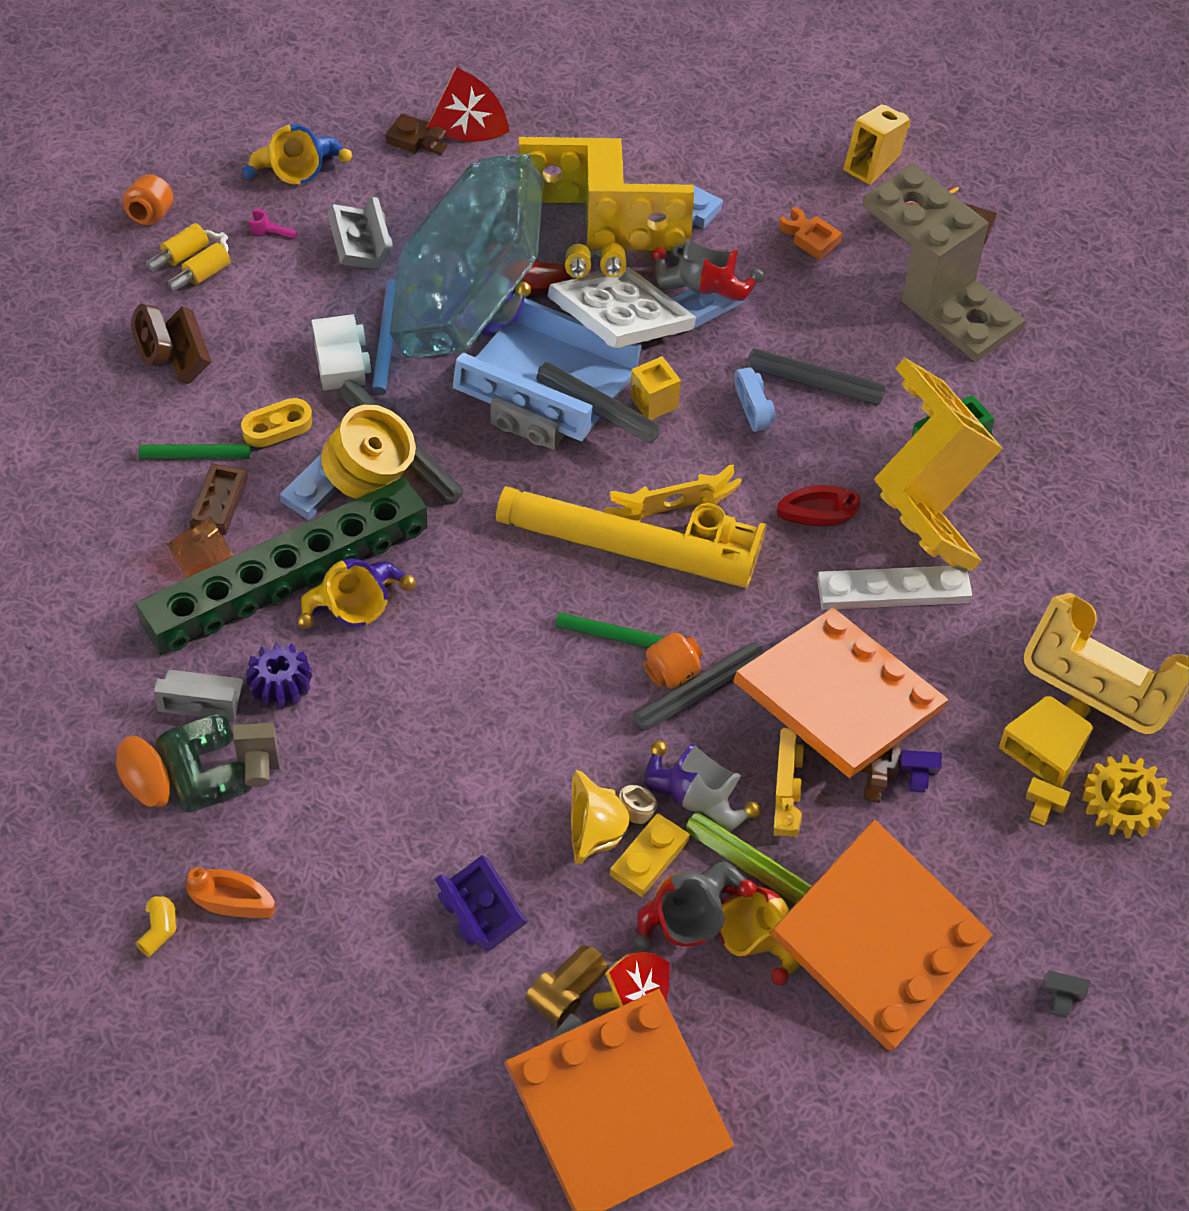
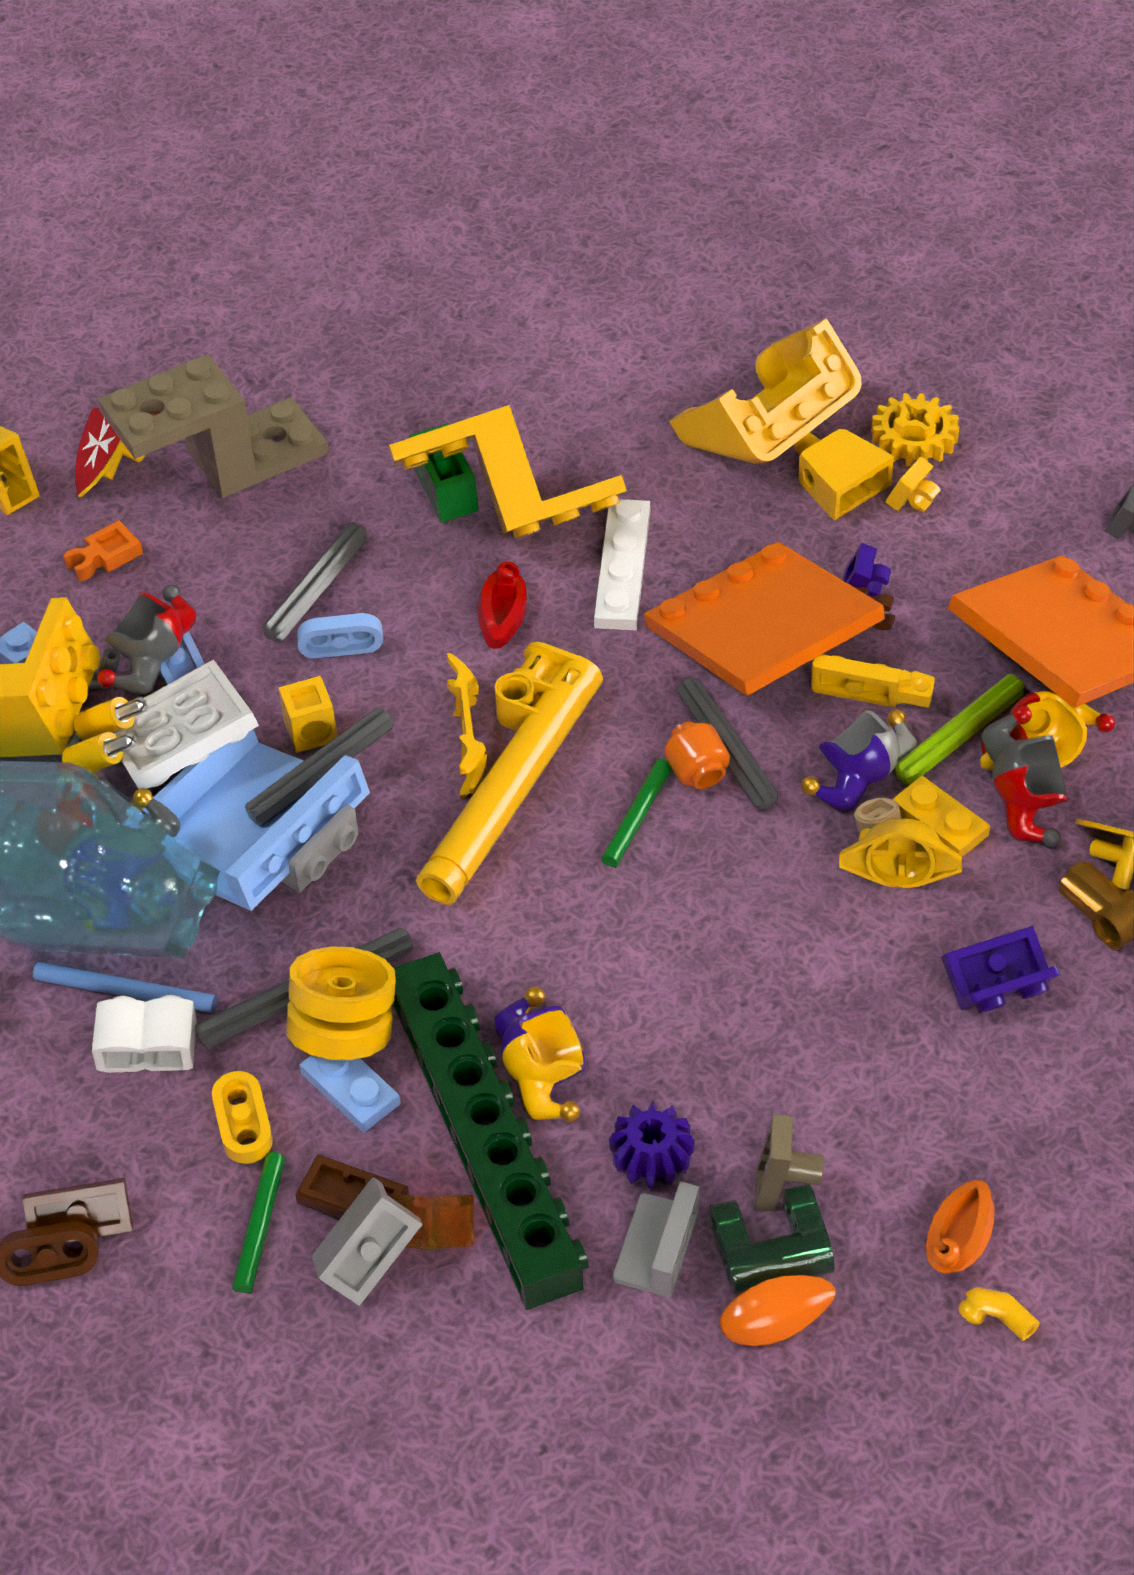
camera: 75 degrees left, 5 degrees down
(165, 506) = (364, 1242): none -> light grey panel

